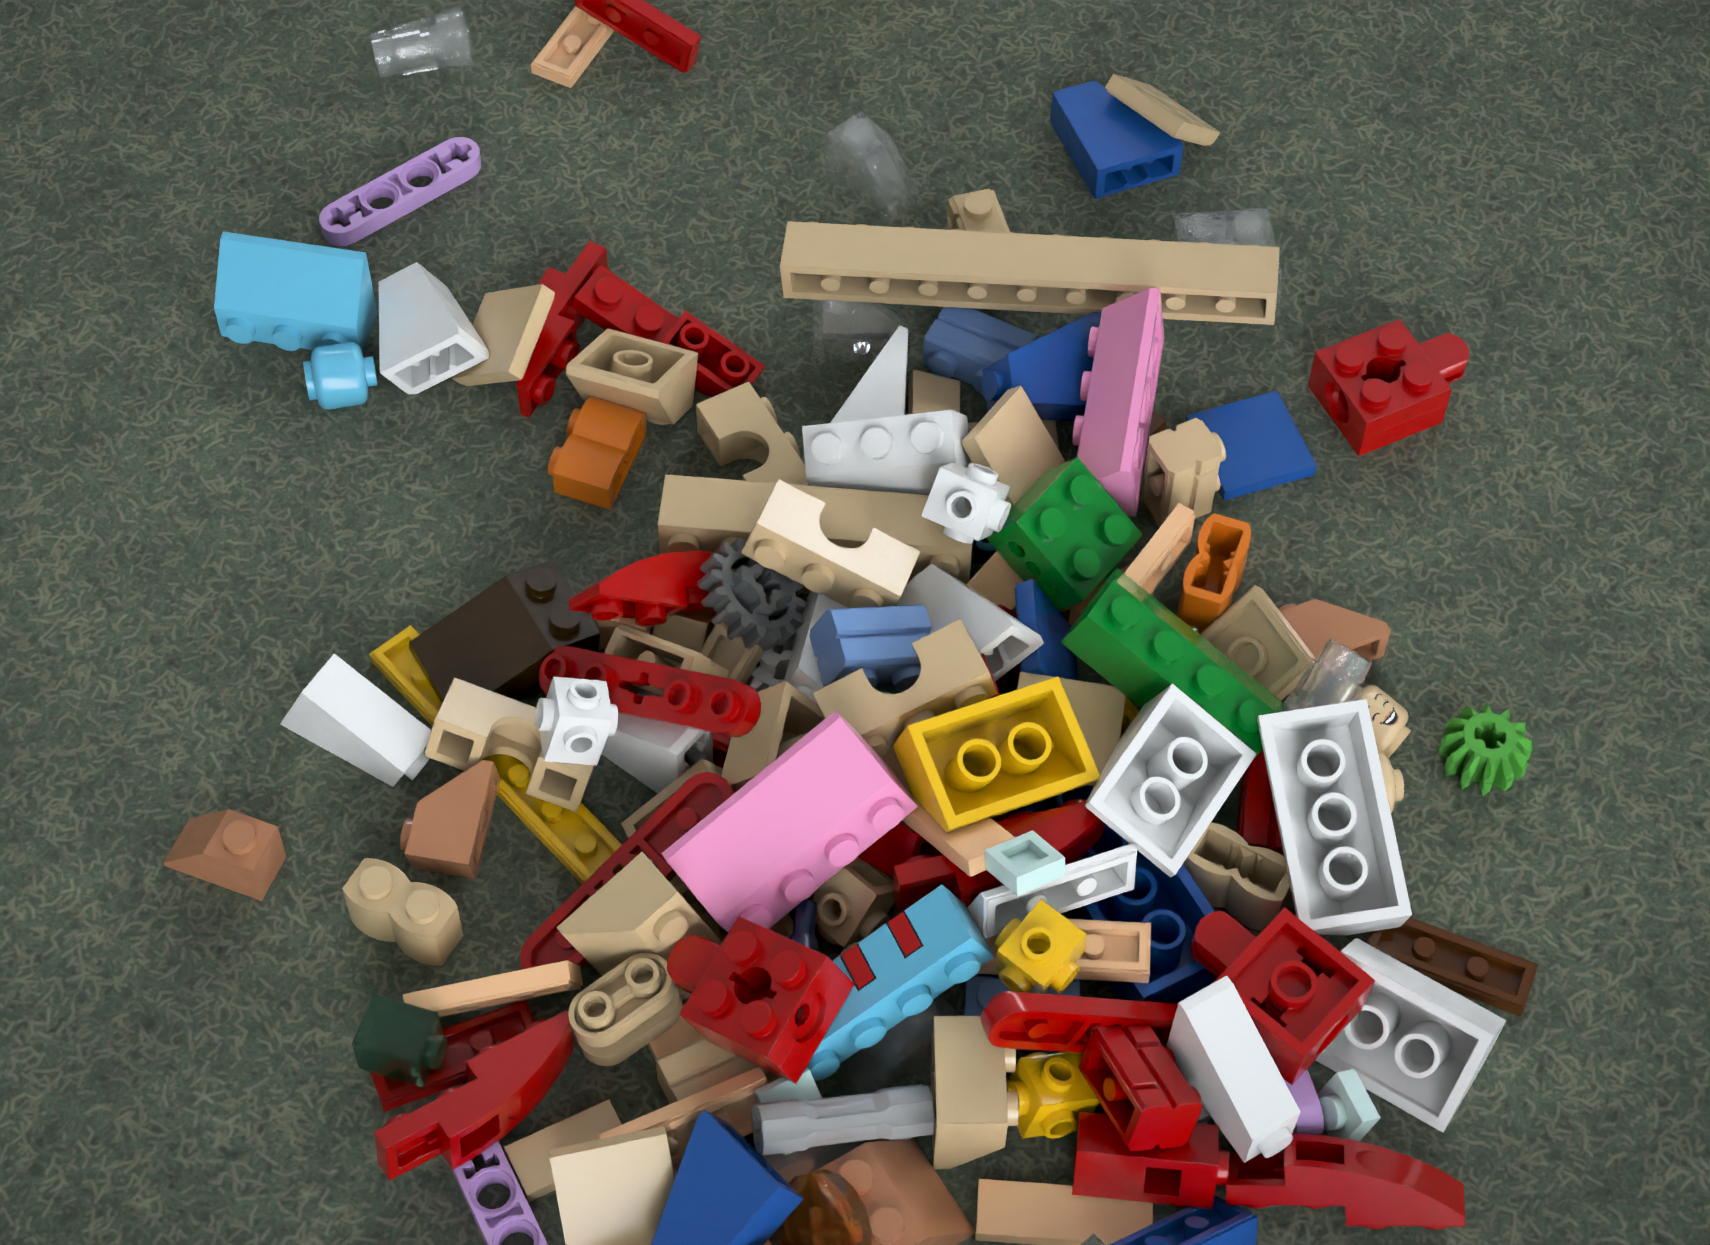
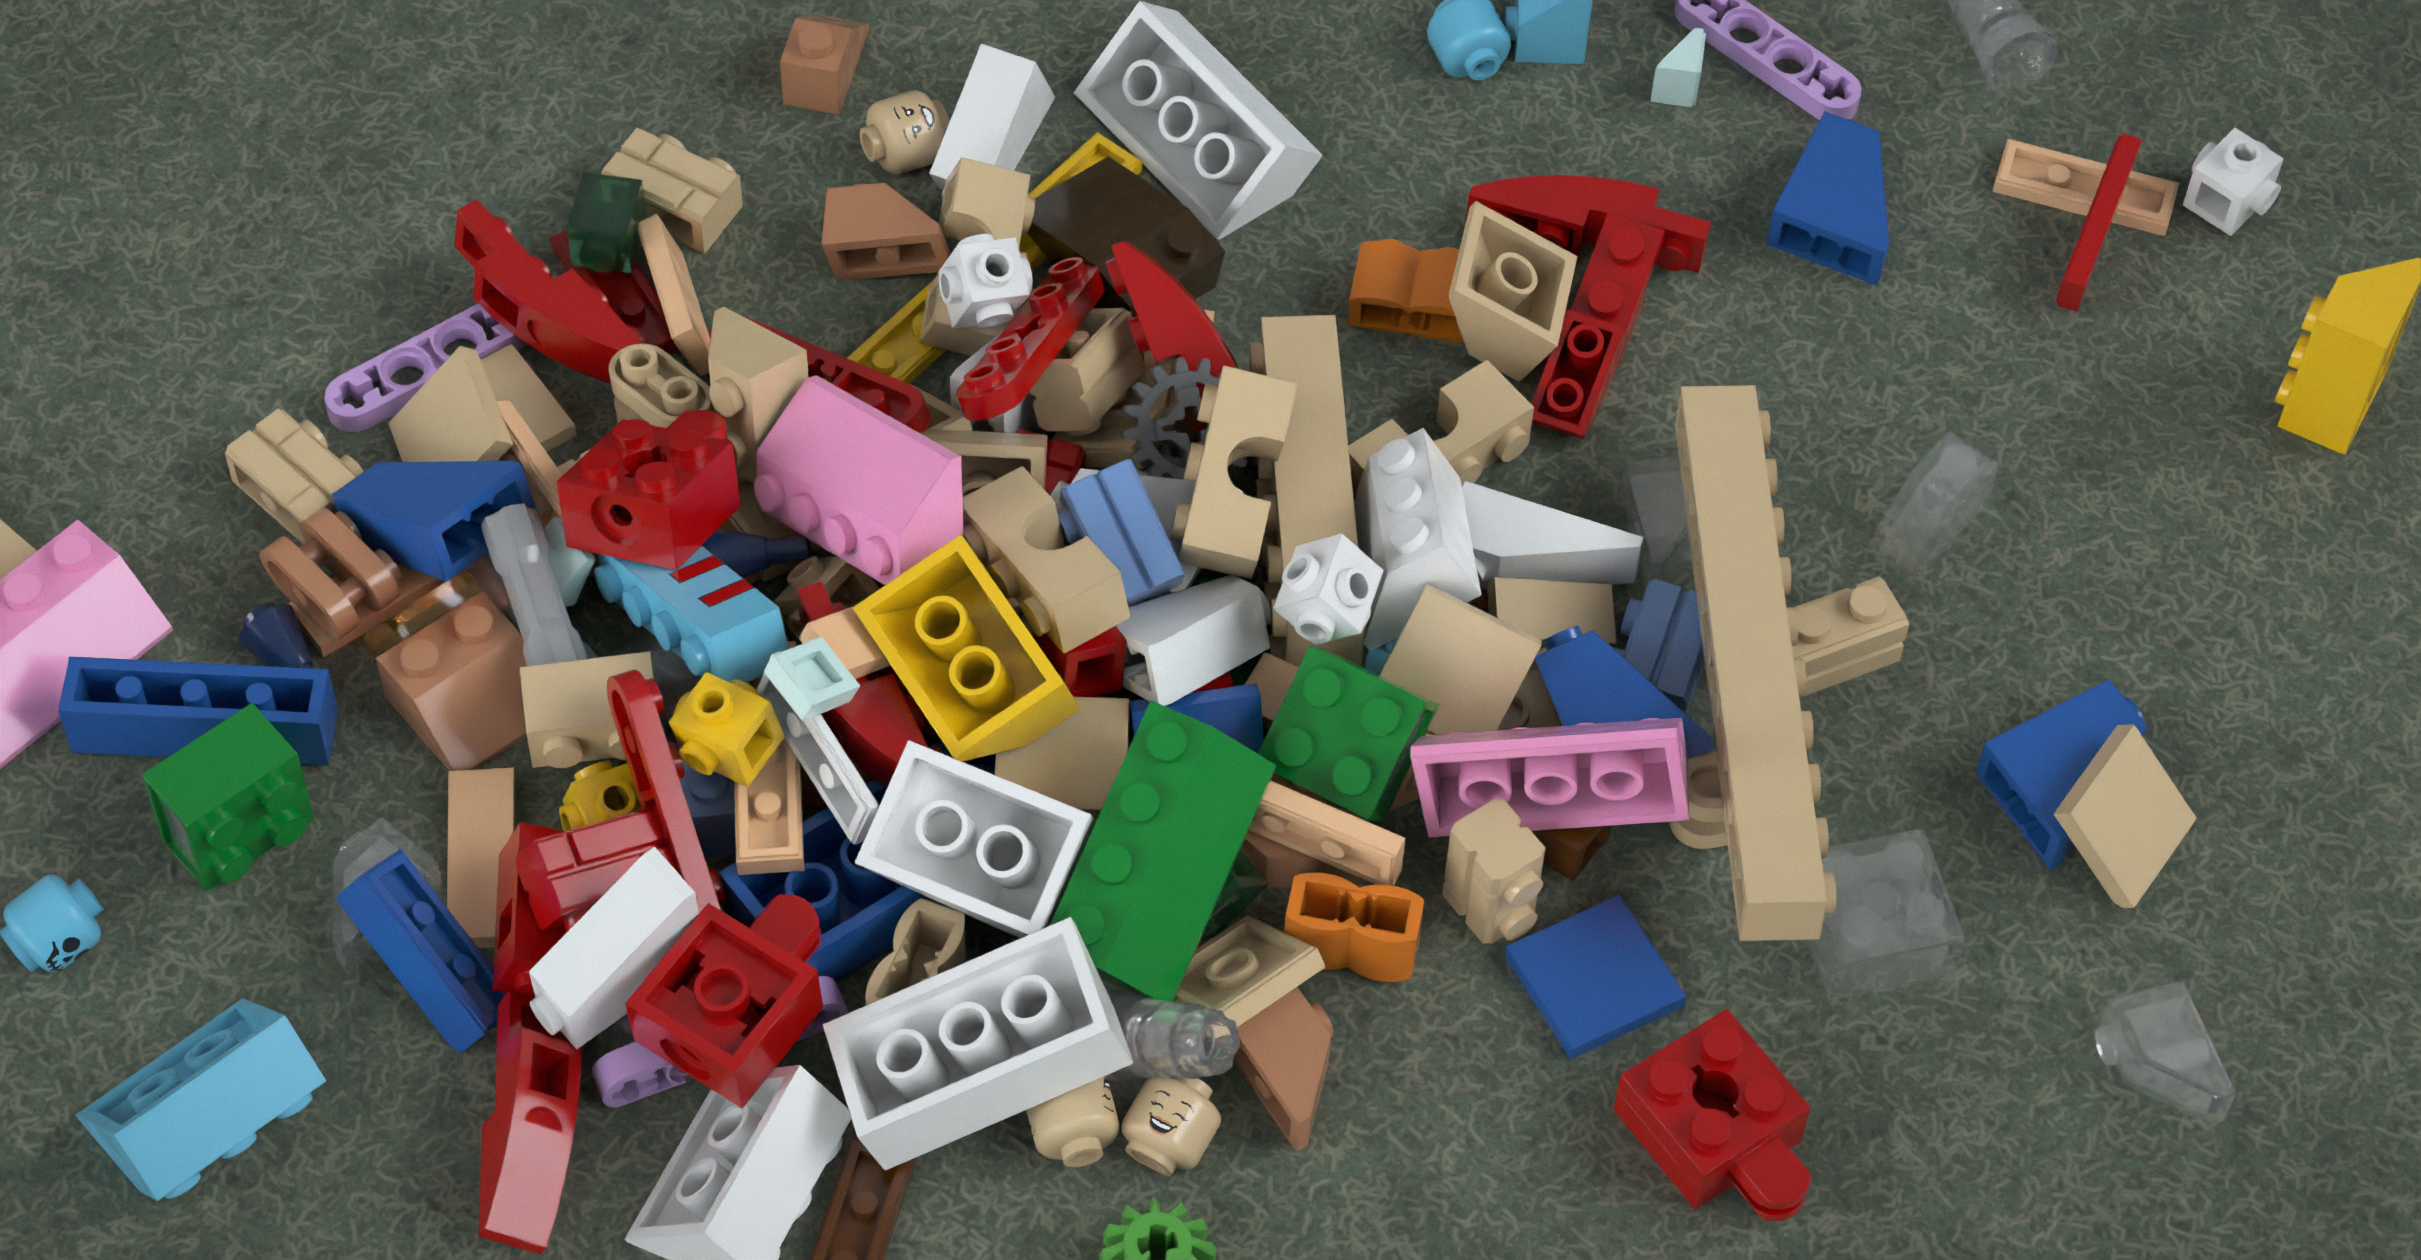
camera: 80 degrees right, 0 degrees up
(337, 999) = (686, 191): none -> tan brick
(339, 791) = (904, 131): none -> tan head
(381, 577) = (1195, 120): none -> white slope
(405, 912) = (767, 208): tan brick -> none
(416, 239) = (1680, 72): none -> light aqua slope
(423, 331) = (1545, 91): white slope -> none
(510, 328) = (1542, 162): tan tile -> none
(571, 170) = (1836, 201): none -> blue slope
(1344, 132) = (2165, 1051): none -> clear slope
(1347, 1106) = (627, 1114): light aqua plate -> none

